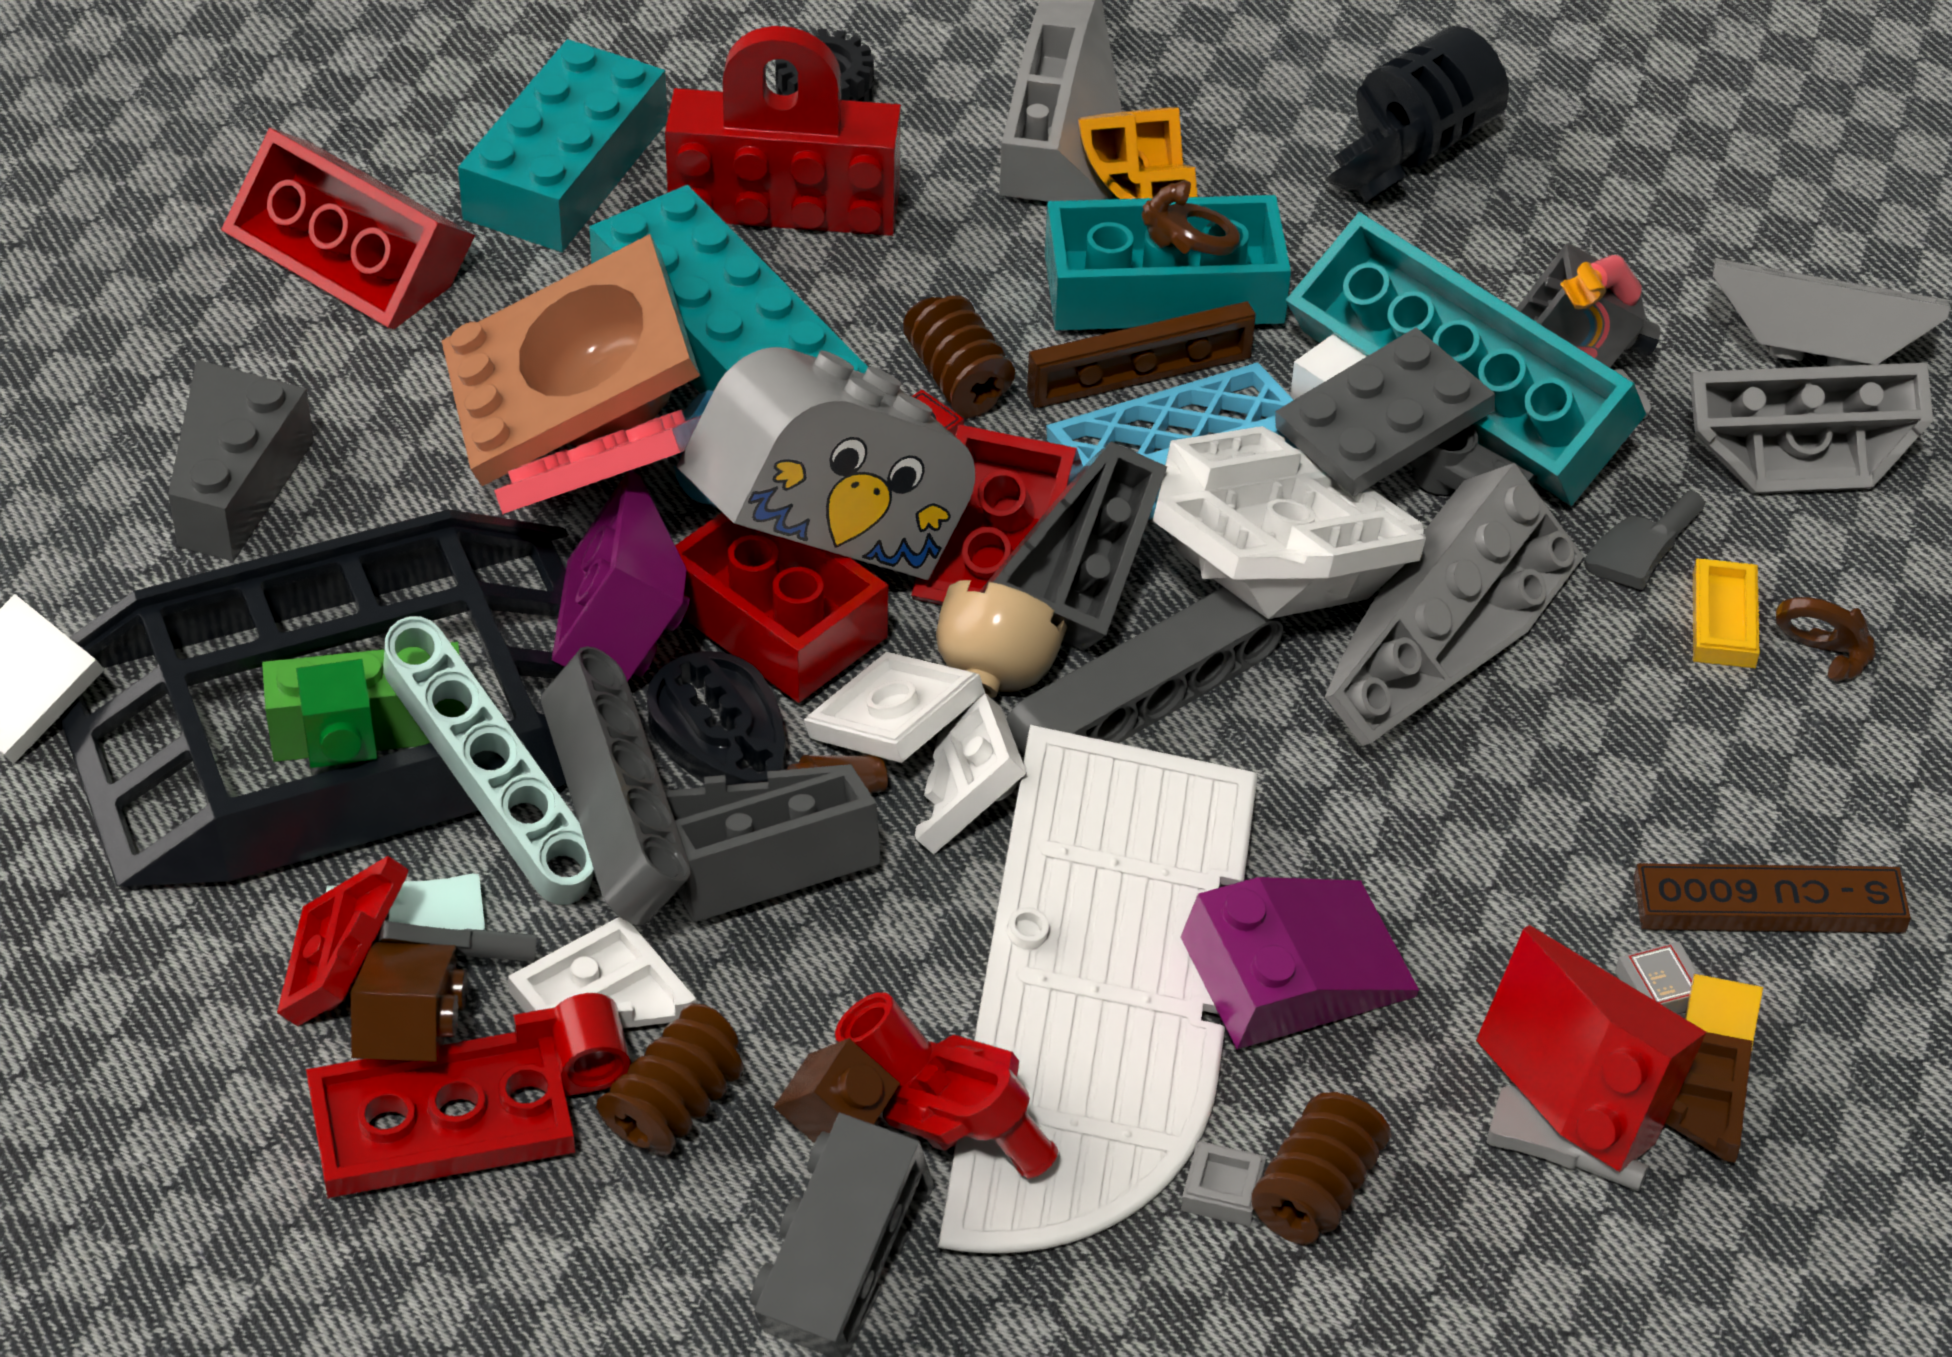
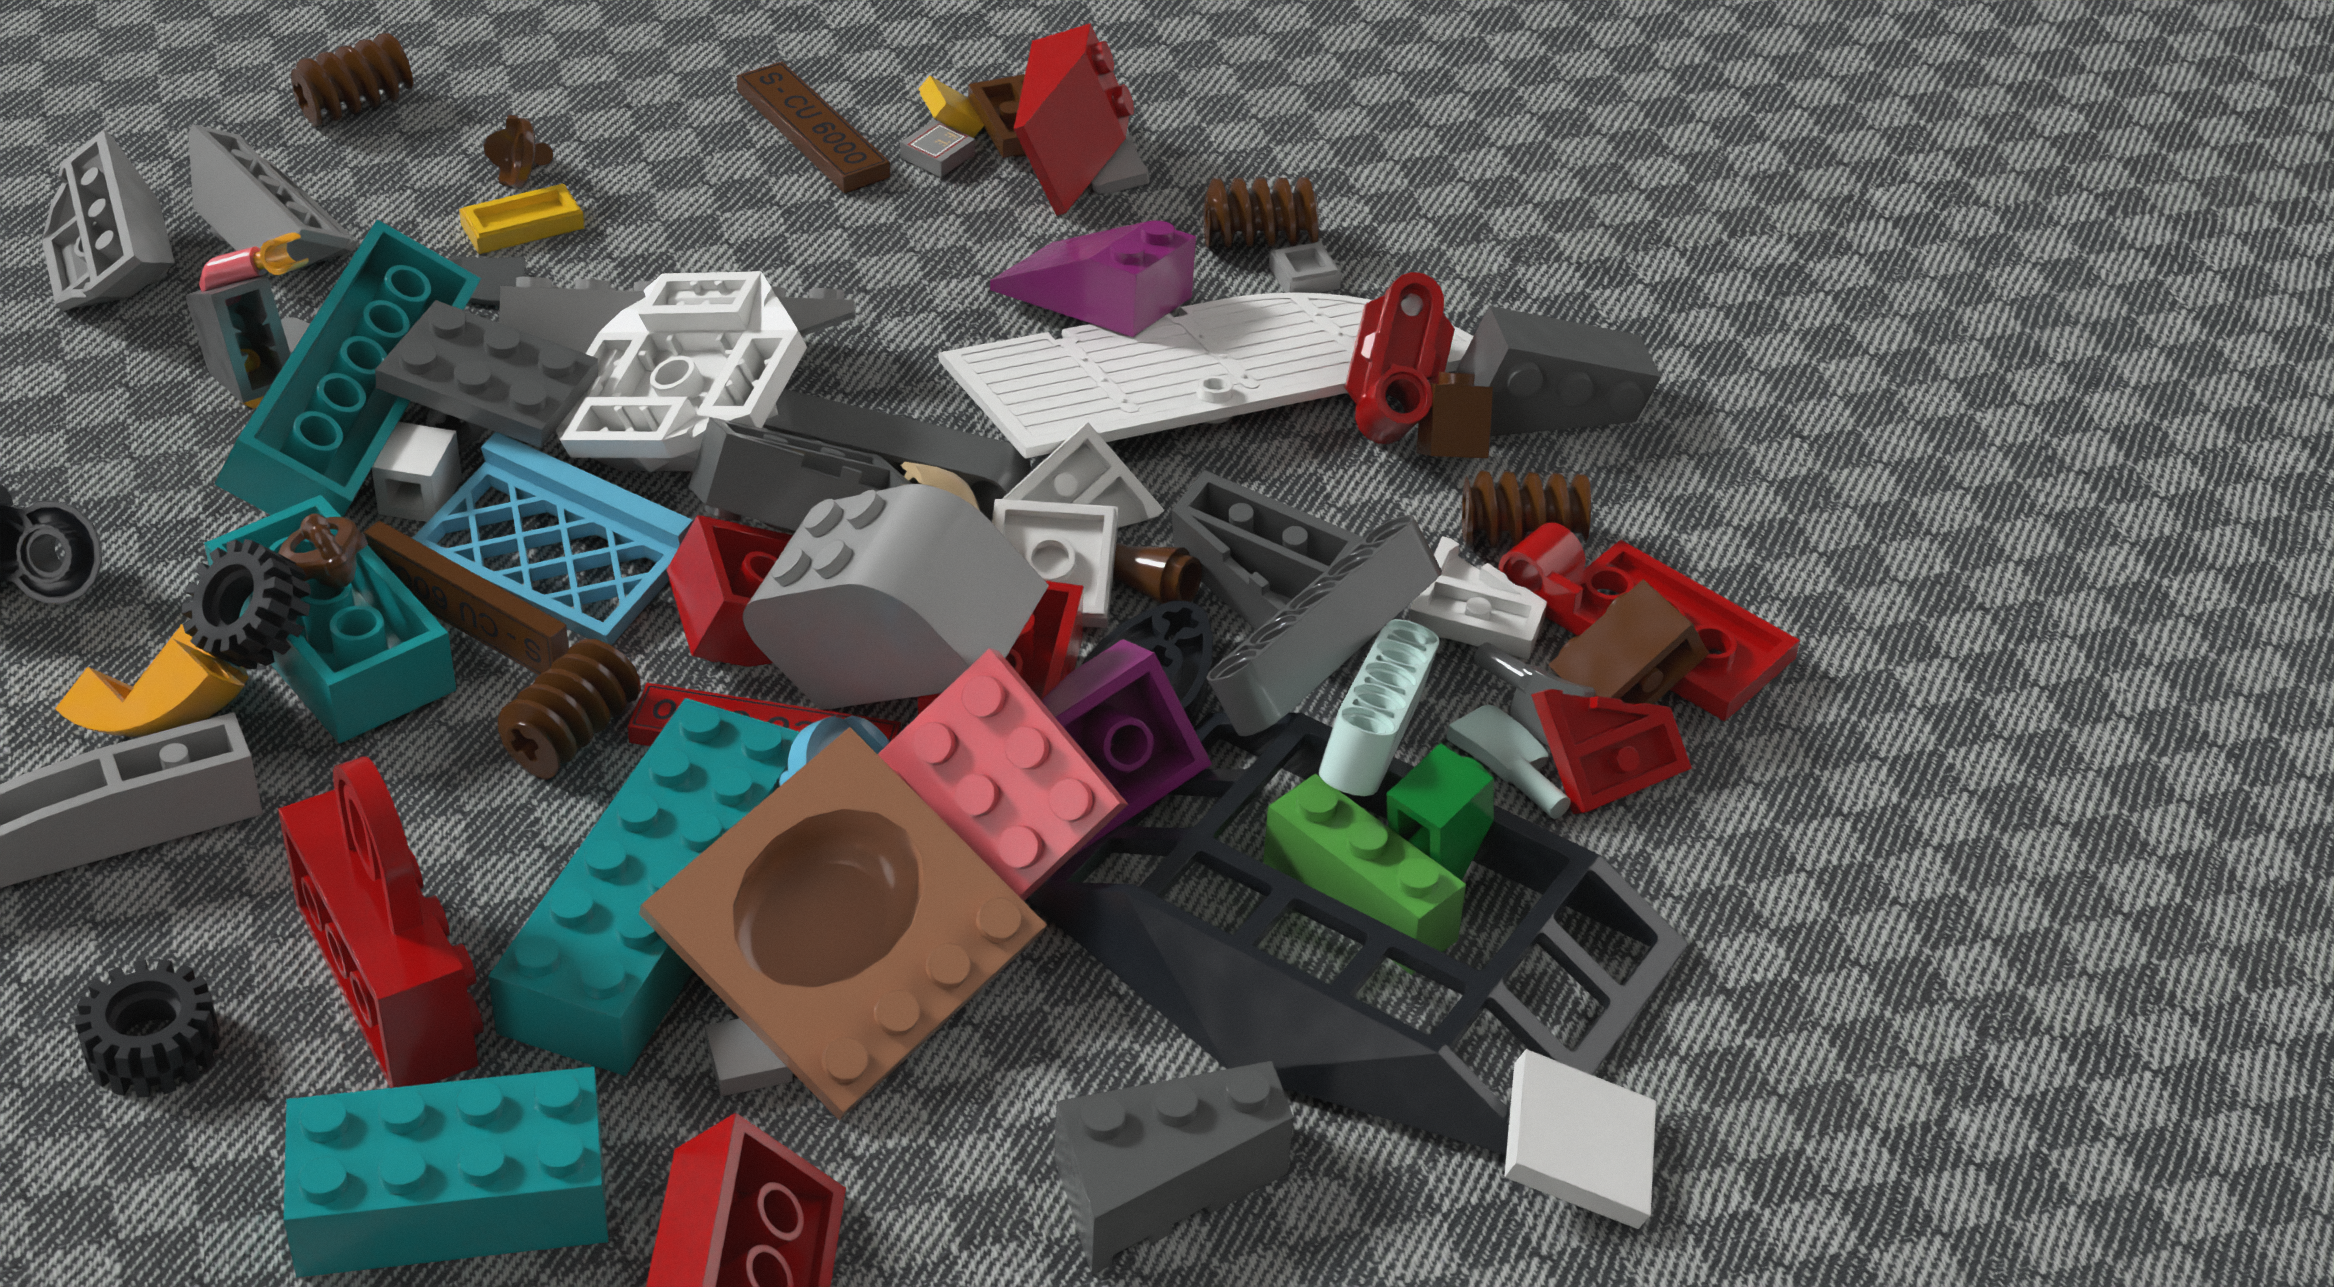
camera: 125 degrees left, 5 degrees down
(1144, 173) = (224, 589): none -> black tyre

